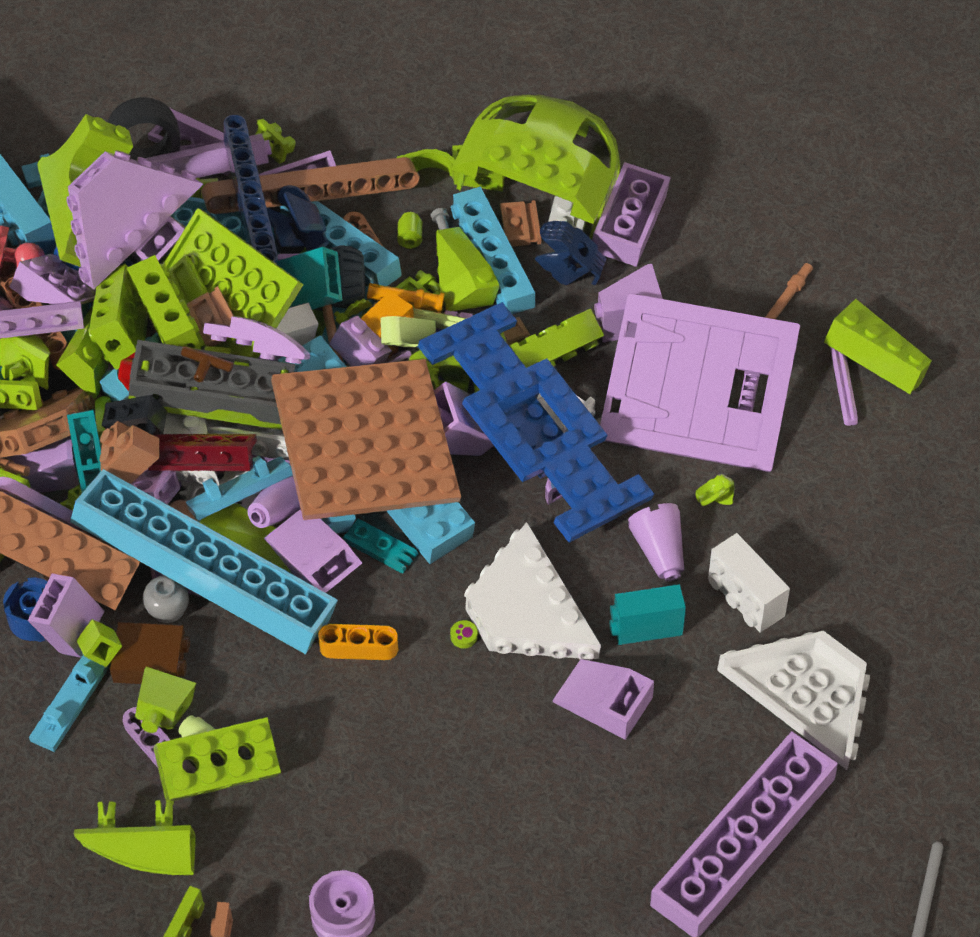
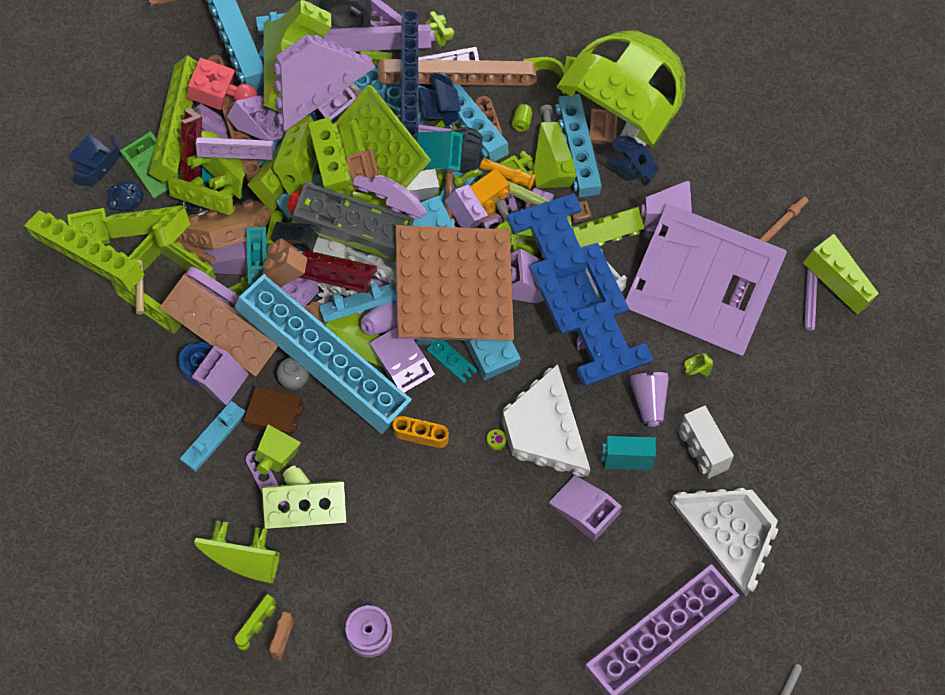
camera: 10 degrees right, 10 degrees up
(99, 643) = (239, 400): lime brick -> none
(206, 360) = (350, 206): reddish brown piece -> none
(405, 330) = (501, 203): yellowish green beam -> none
(630, 213) = (684, 135): lavender brick -> none

